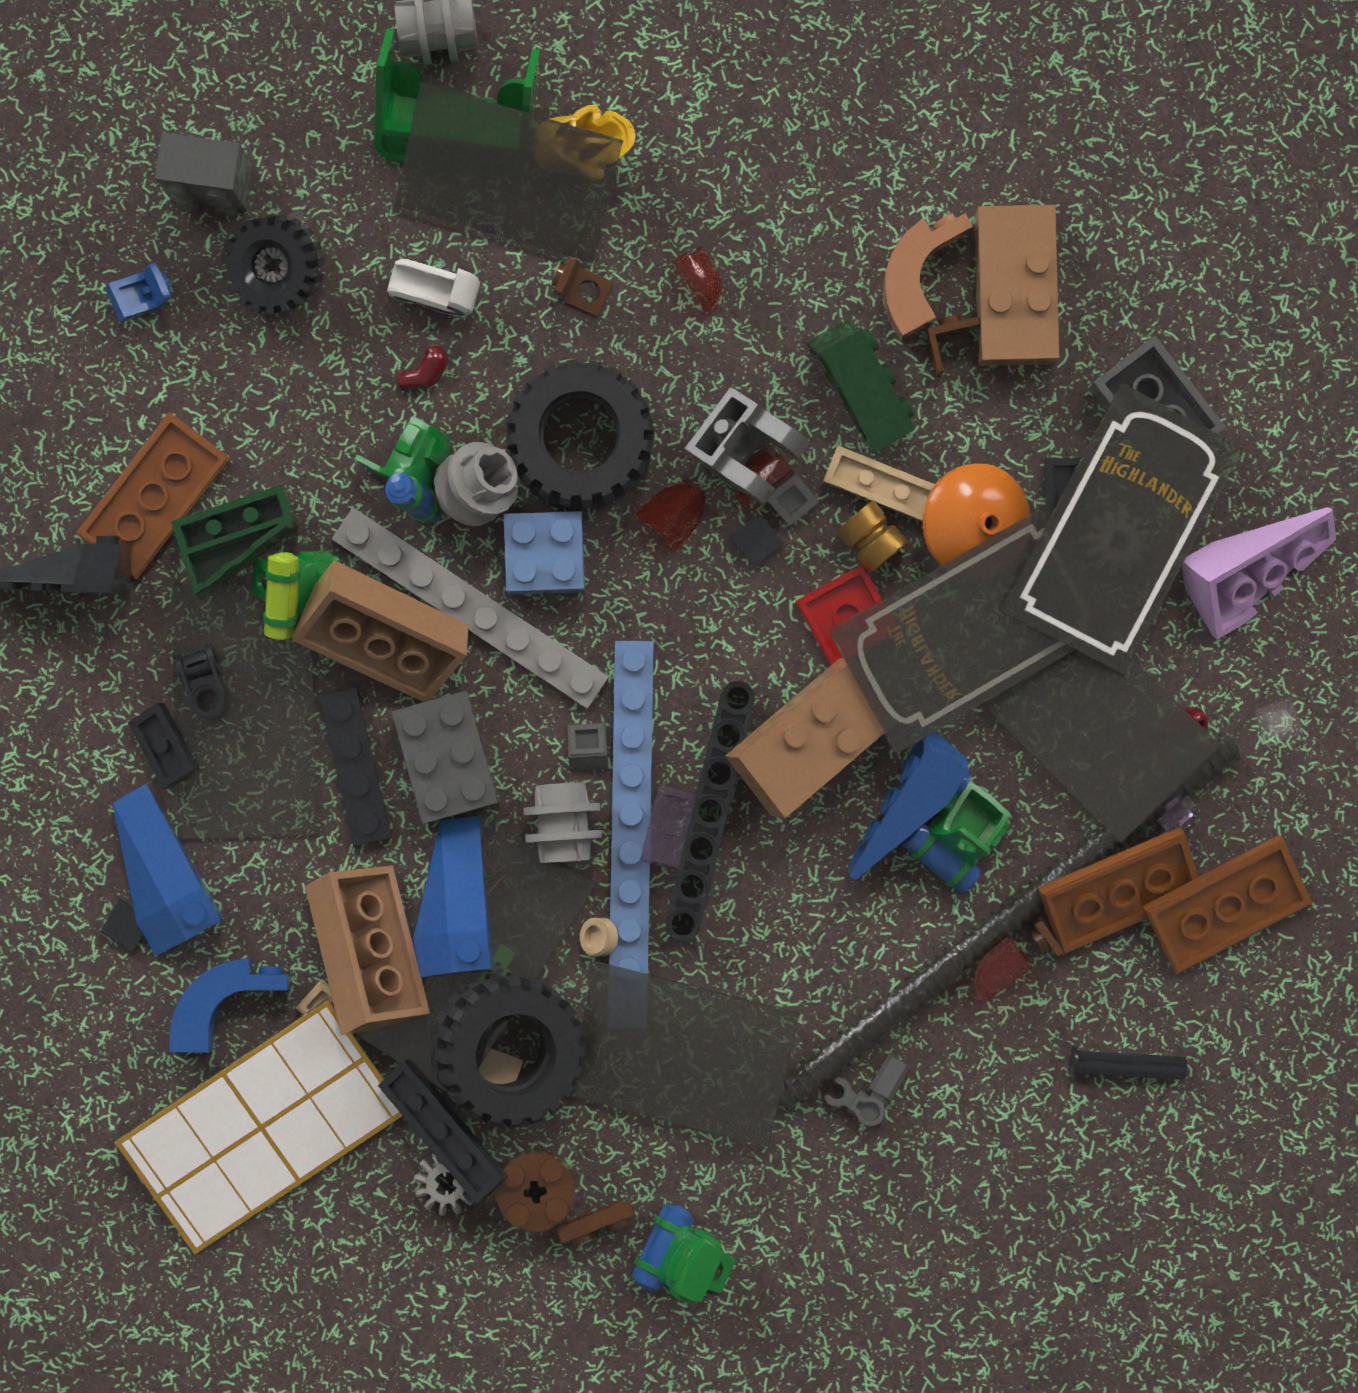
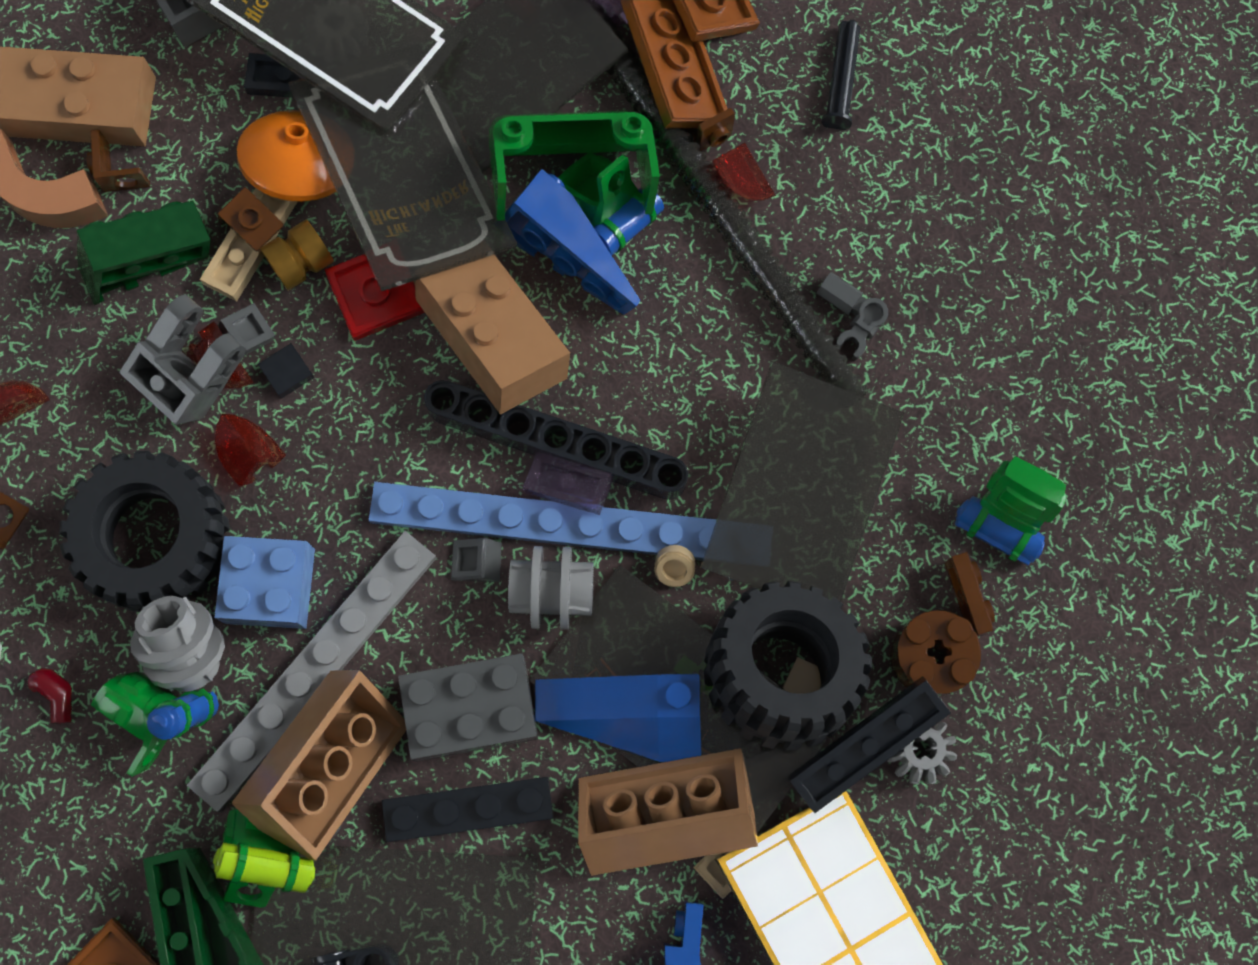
camera: 85 degrees left, 10 degrees down
(903, 485) = (250, 219): none -> reddish brown bracket
(1015, 744) = (573, 134): none -> green windscreen

